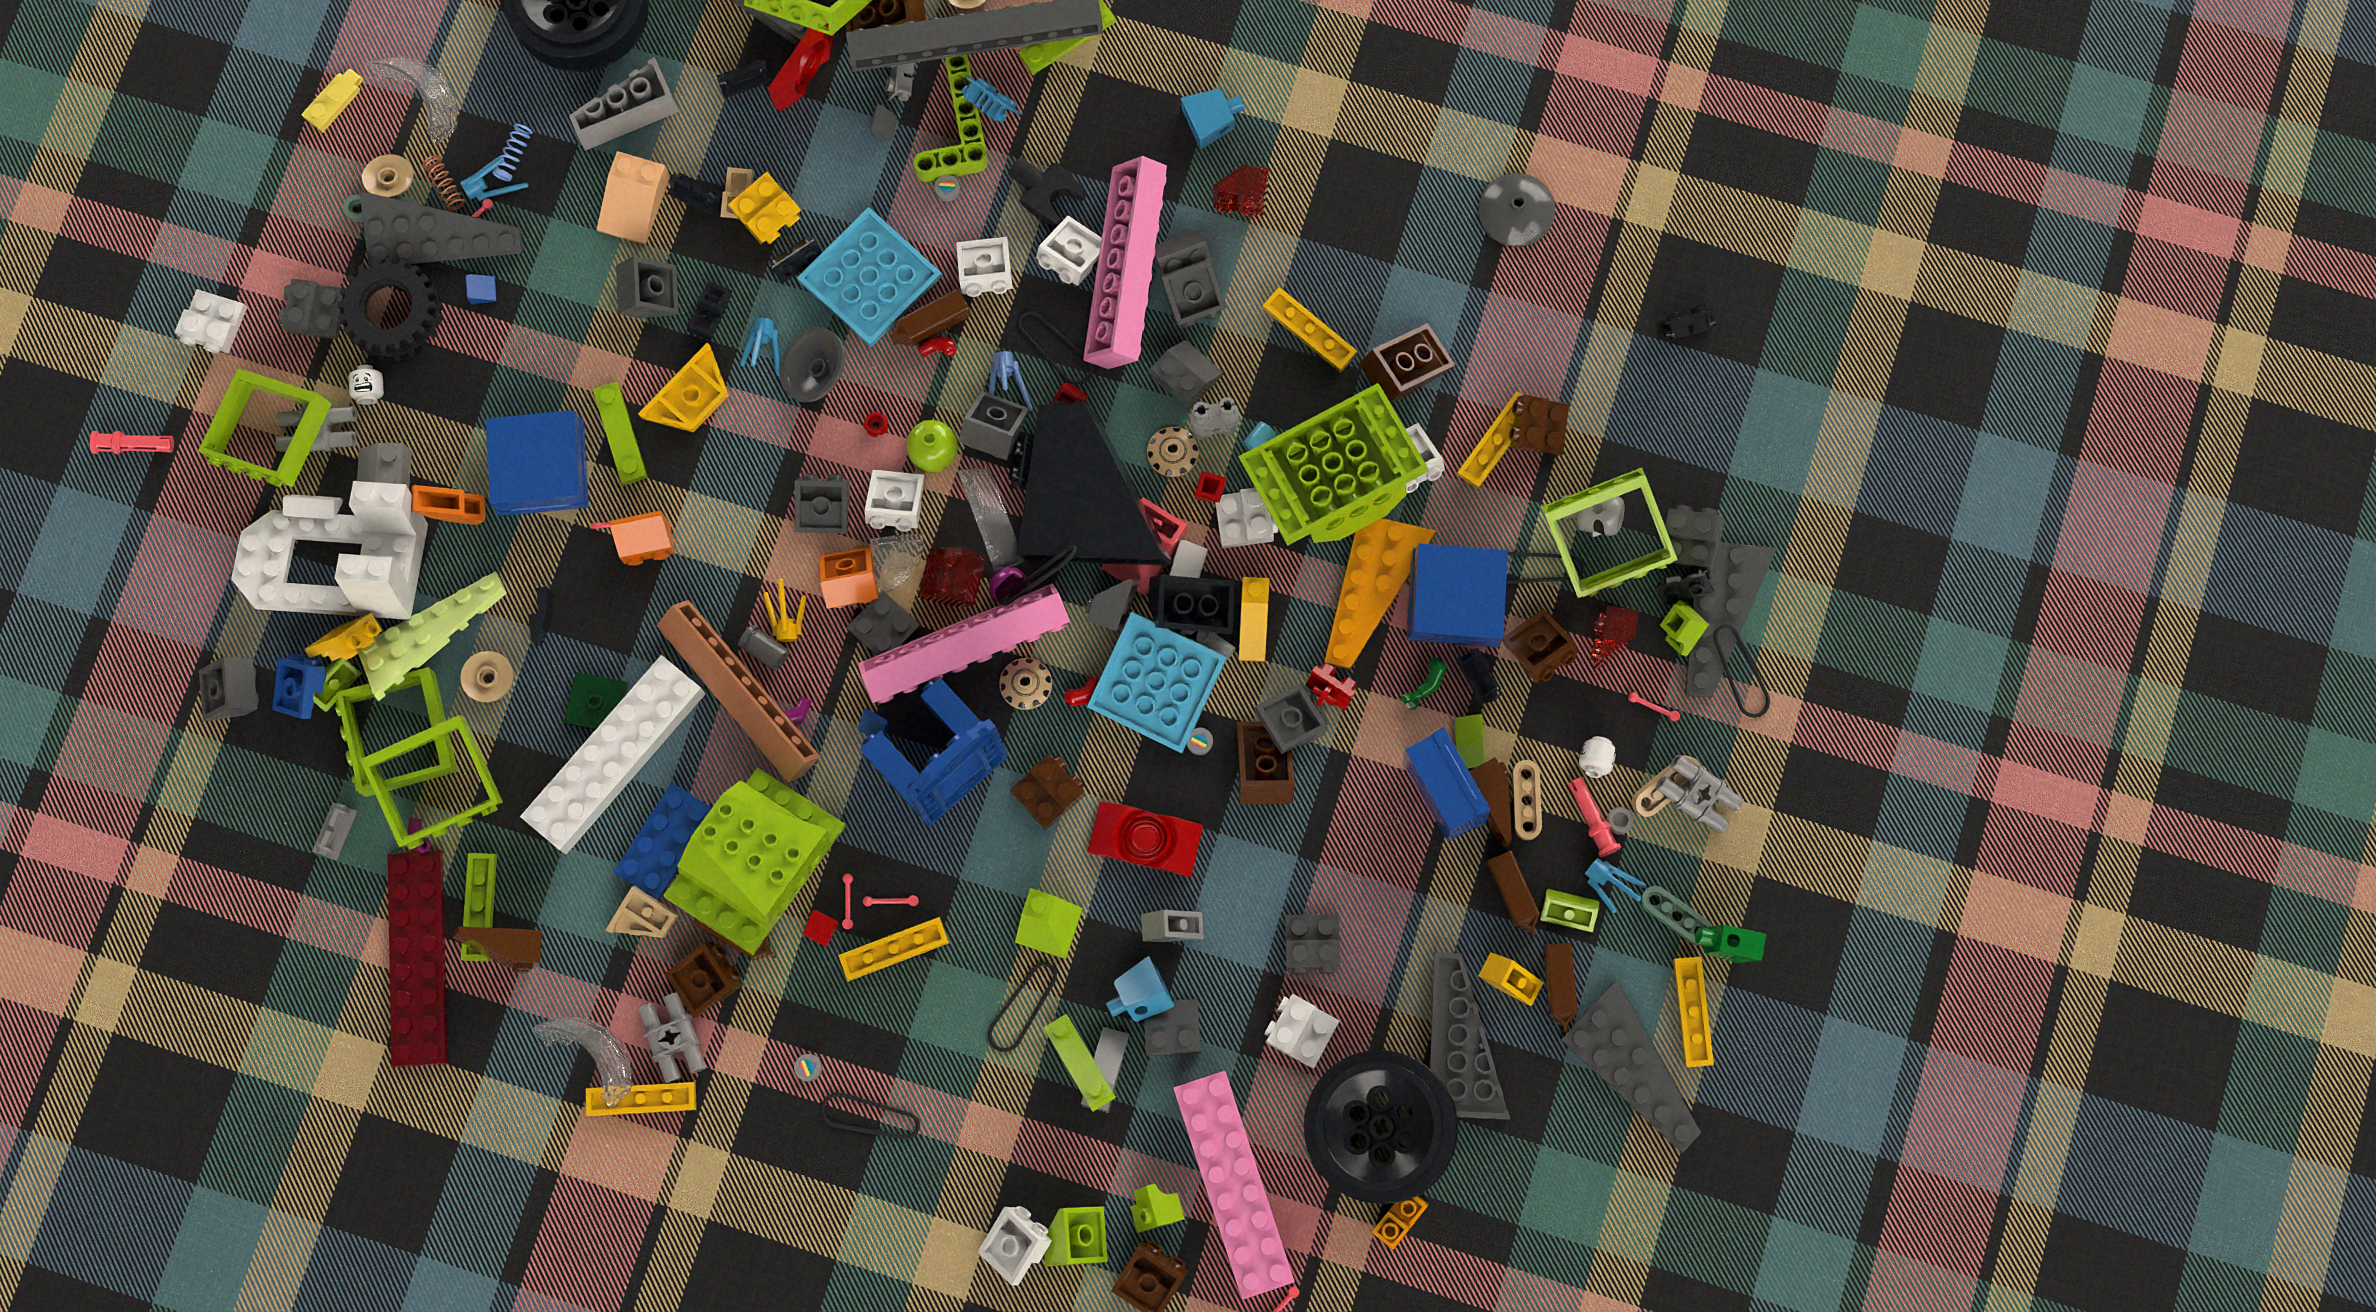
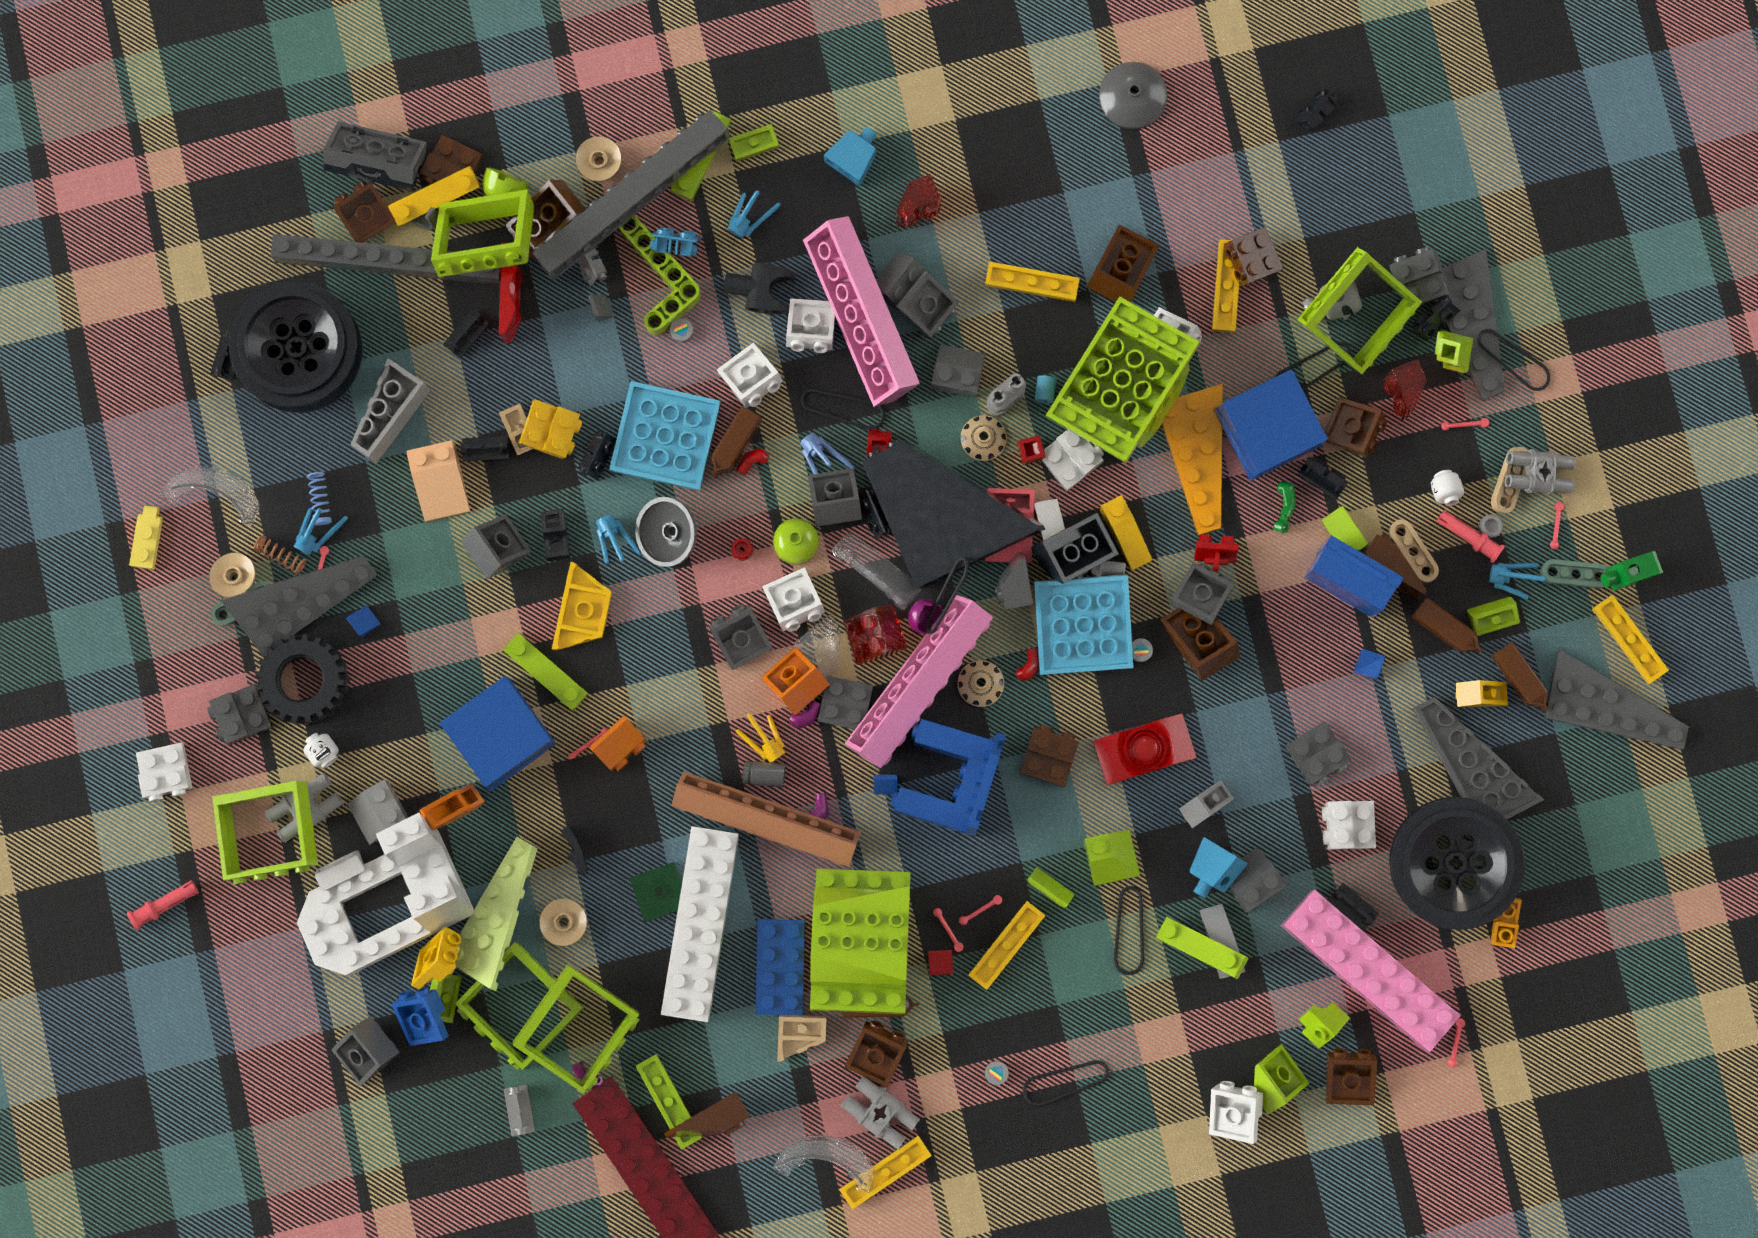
camera: 30 degrees left, 5 degrees up
(837, 618) = (805, 718): none -> magenta arm
(970, 918) = (1050, 888): none -> lime slope
(1063, 120) = (739, 224): none -> dark azure plant
(1123, 52) = (753, 142): none -> lime plate
(1256, 1113) = (1353, 907): none -> black hinge
(1416, 884) = (1369, 664): none -> blue slope
(1699, 842) = (1559, 506): none -> coral hinge

